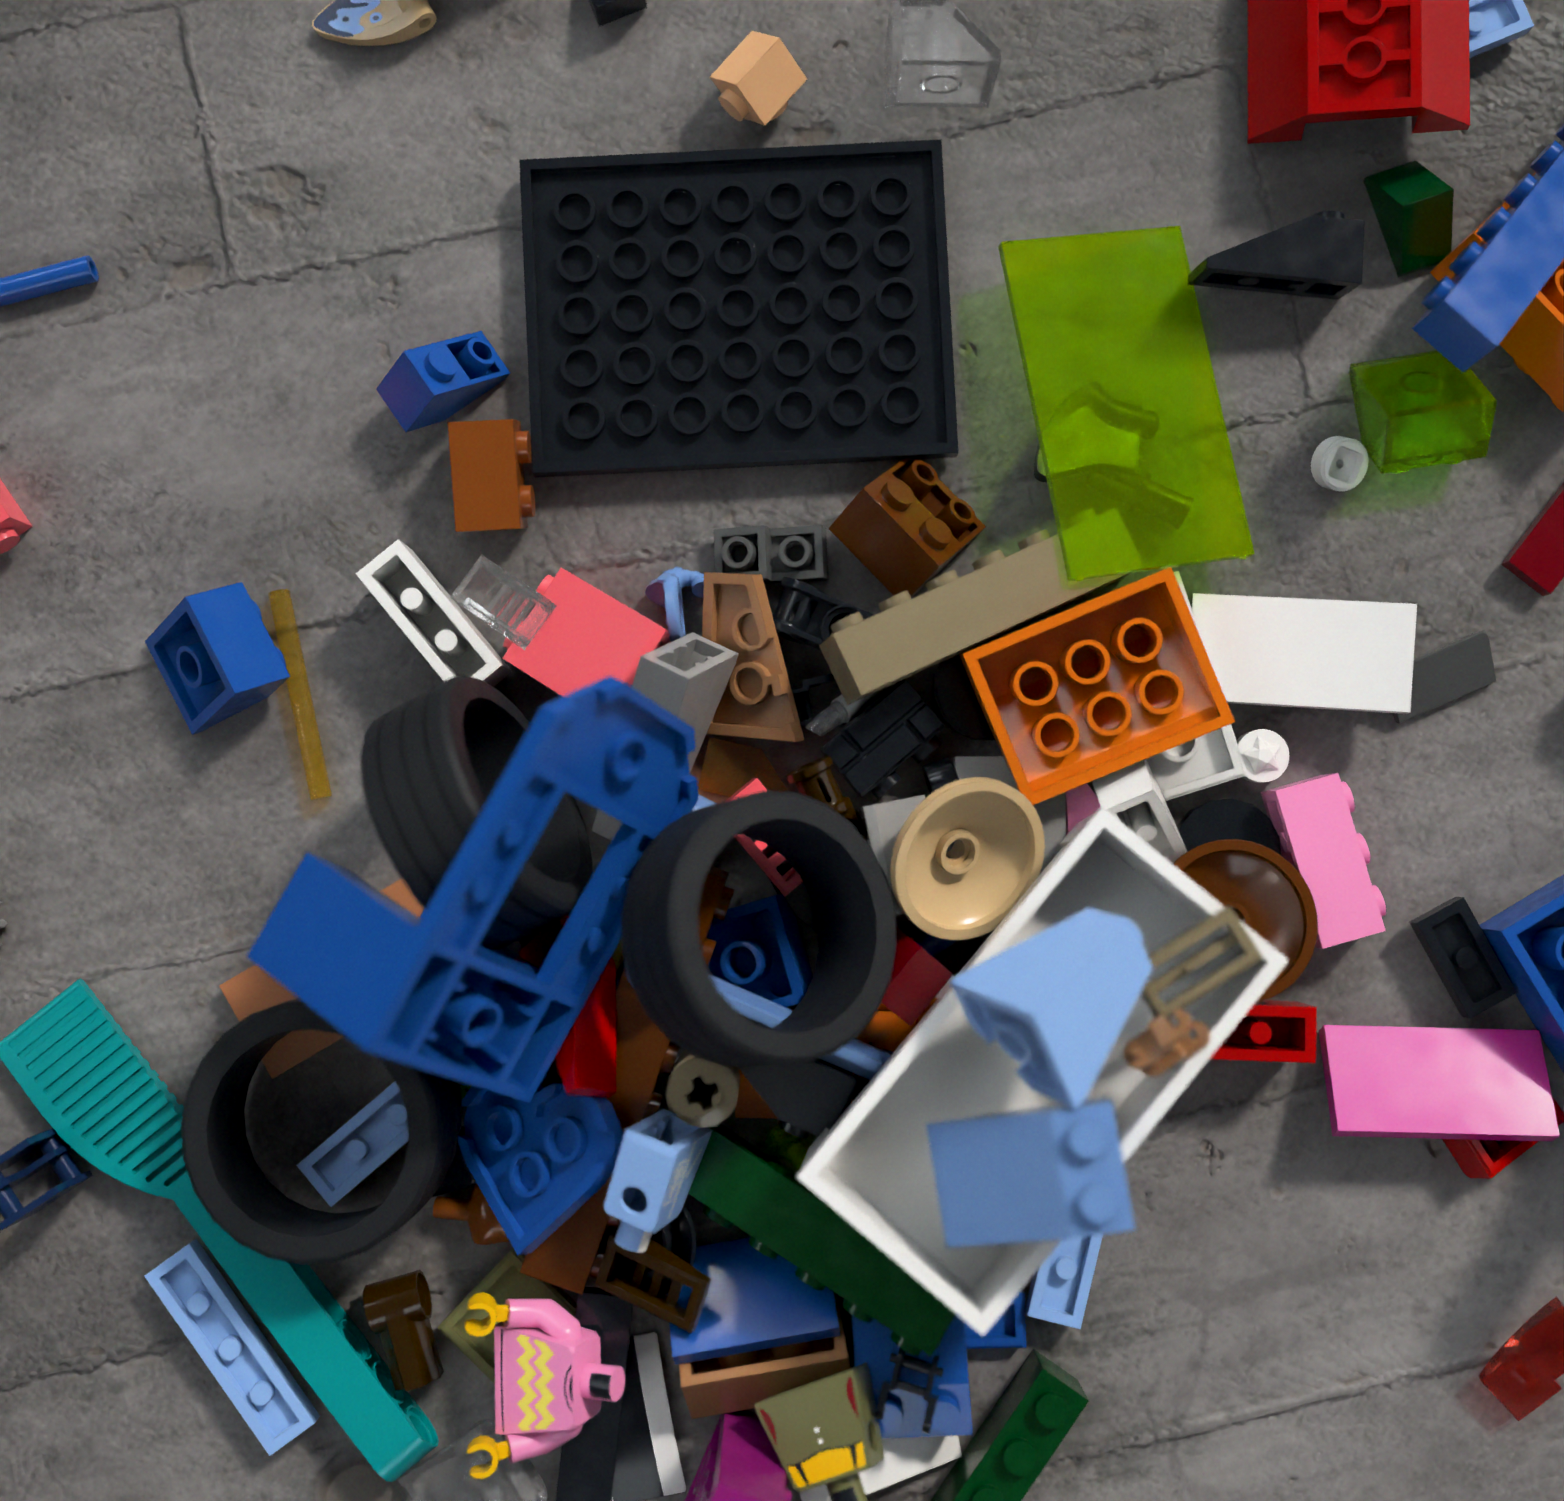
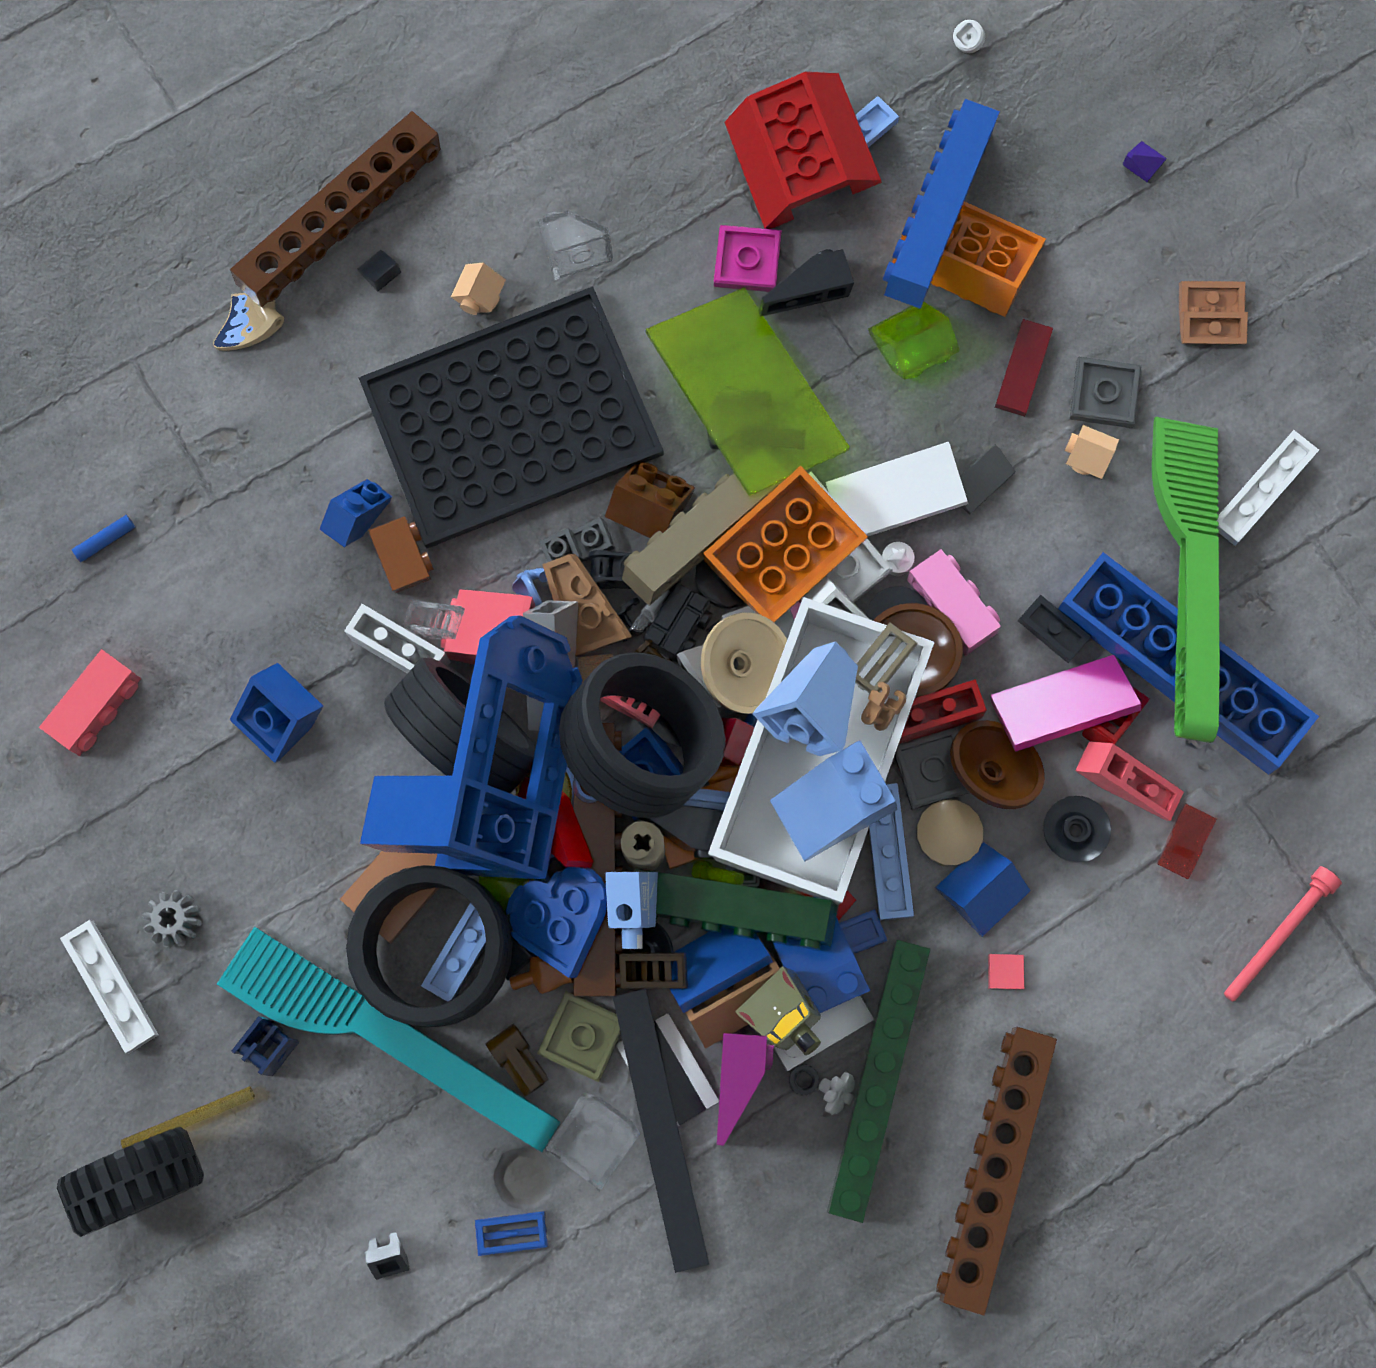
camera: 15 degrees left, 10 degrees down
(232, 1347) = (418, 1108): light blue plate -> none
(300, 695) = (331, 719): clear yellow bar -> none
(544, 1378) = (609, 1049): bright pink torso -> none
(931, 1369) = (809, 975): black piece -> none
(1182, 1215) = (950, 832): none -> tan dish
(1187, 1457) = (1006, 971): none -> coral tile
(1200, 1316) = (984, 888): none -> blue slope
(1202, 179) = (747, 258): none -> dark pink tile
(1206, 1119) = (928, 769): none -> dark grey tile
(1288, 1153) = (993, 769): none -> reddish brown dish
(1339, 463) = (881, 383): white tile -> none
(1399, 1299) = (1090, 819): none -> black dish
(1413, 215) = (871, 237): dark green slope -> none
(1487, 1234) = (1129, 779): none -> coral slope

